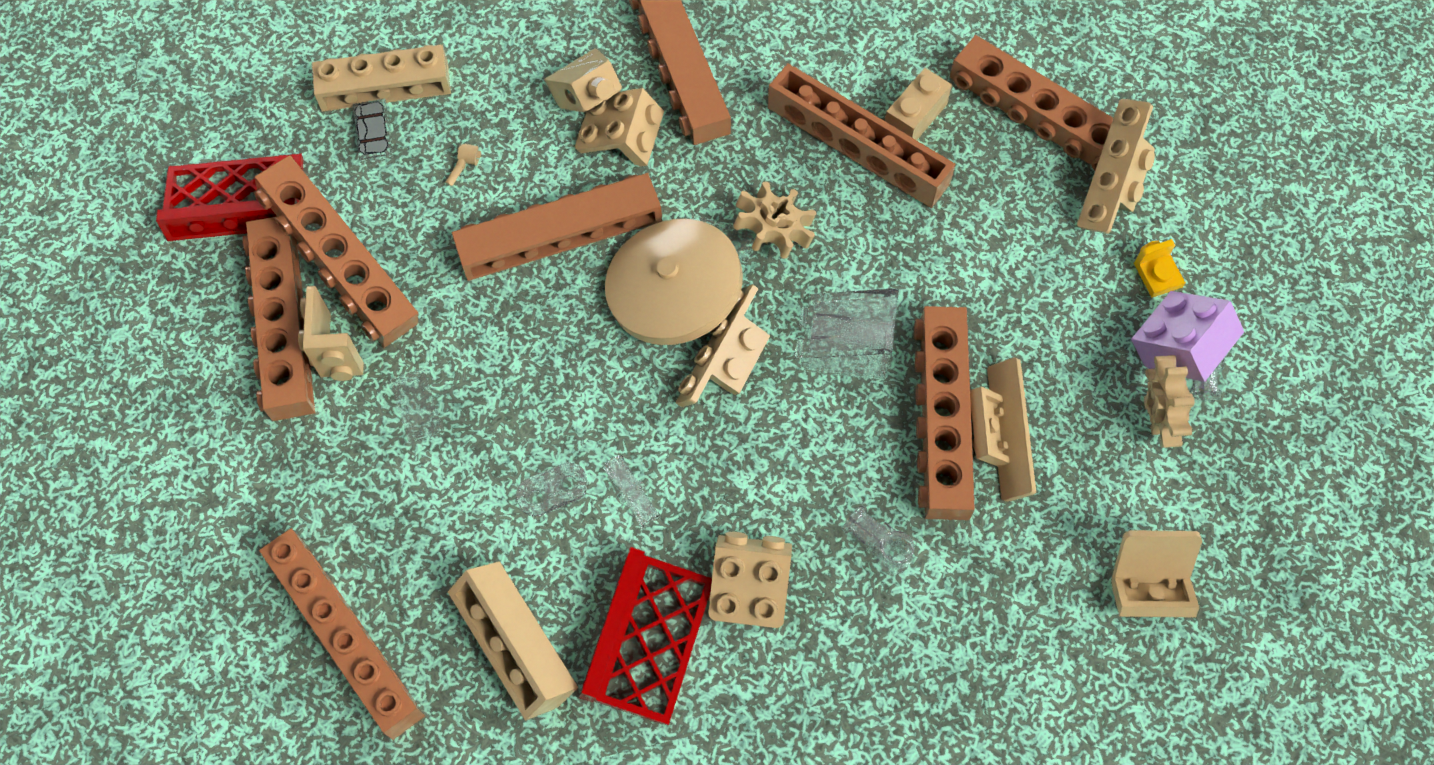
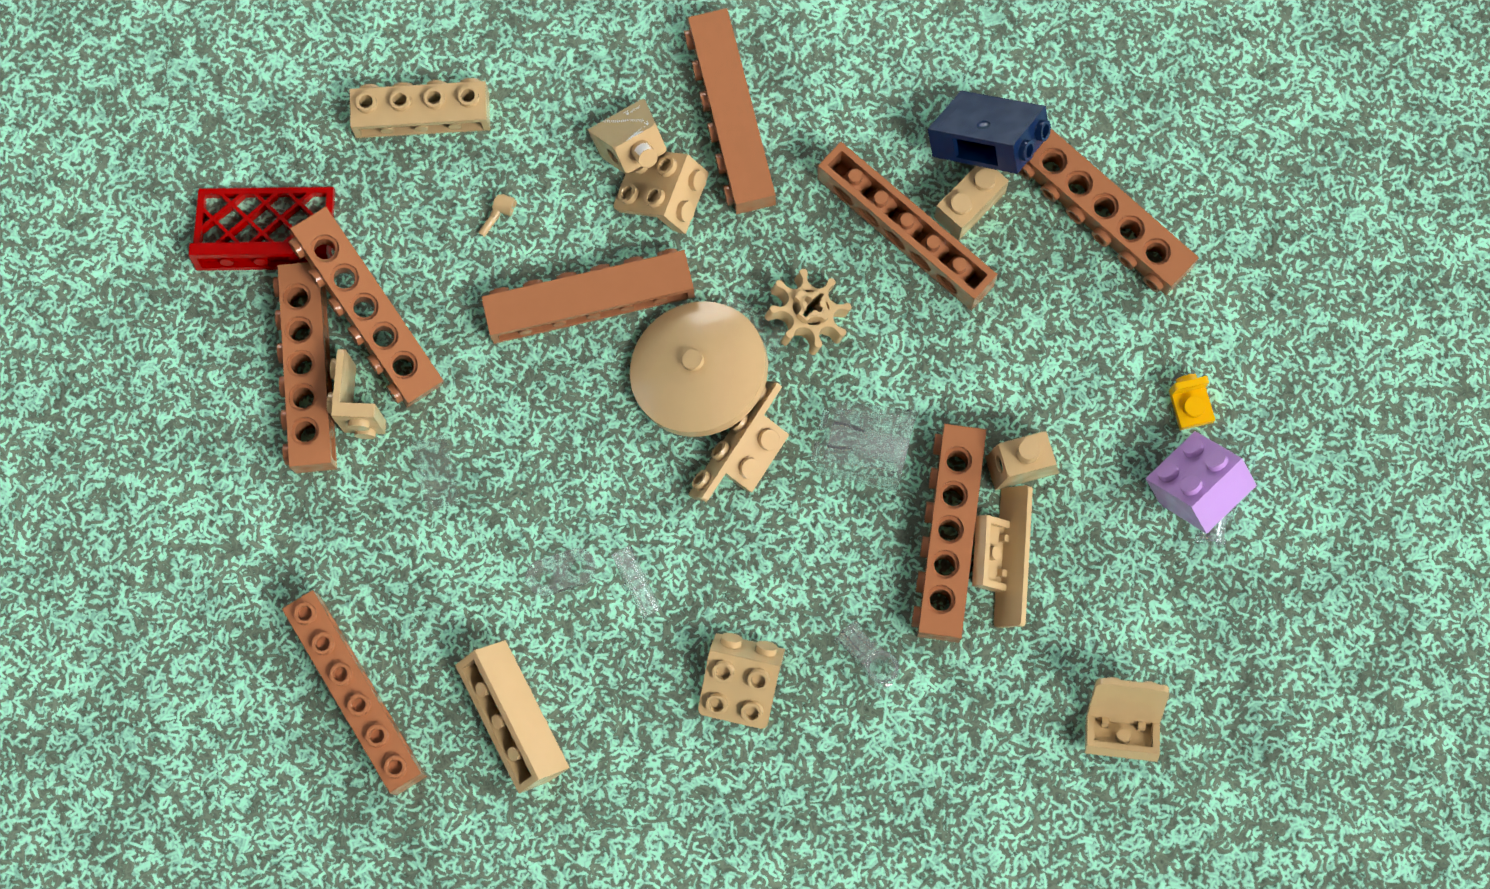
camera: 10 degrees right, 10 degrees up
(373, 131) = (407, 167): tile -> none
(615, 627) = (610, 710): red fence -> none
(928, 44) = (989, 131): none -> dark blue piece
(1011, 333) = (1021, 460): none -> tan torso
(1120, 168) = (1168, 292): tan bracket -> none
(1168, 401) = (1168, 549): tan gear -> none

